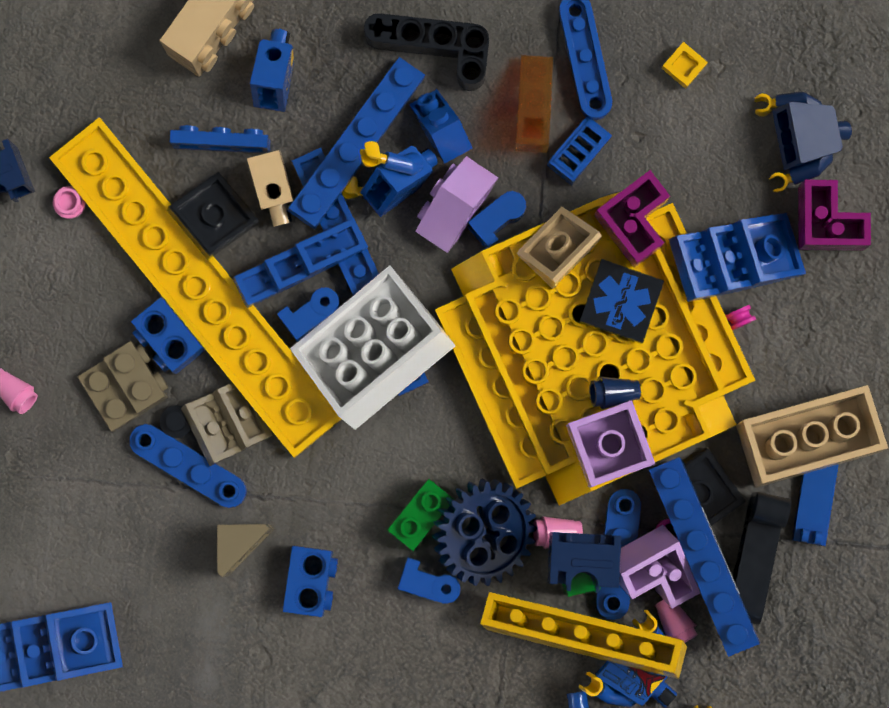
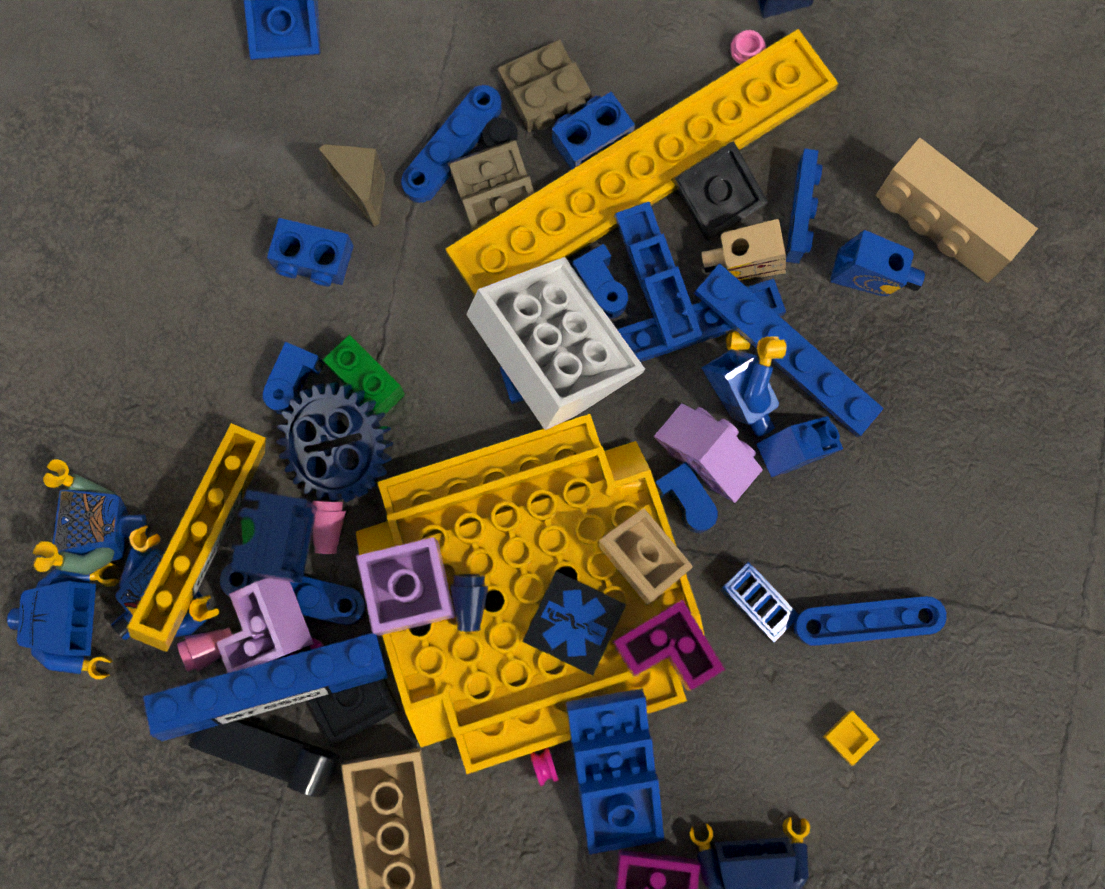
camera: 100 degrees right, 5 degrees down
(426, 44) = (897, 439): black beam -> none
(534, 104) = (817, 553): clear orange slope -> none
(815, 506) = (312, 829): blue hinge -> none

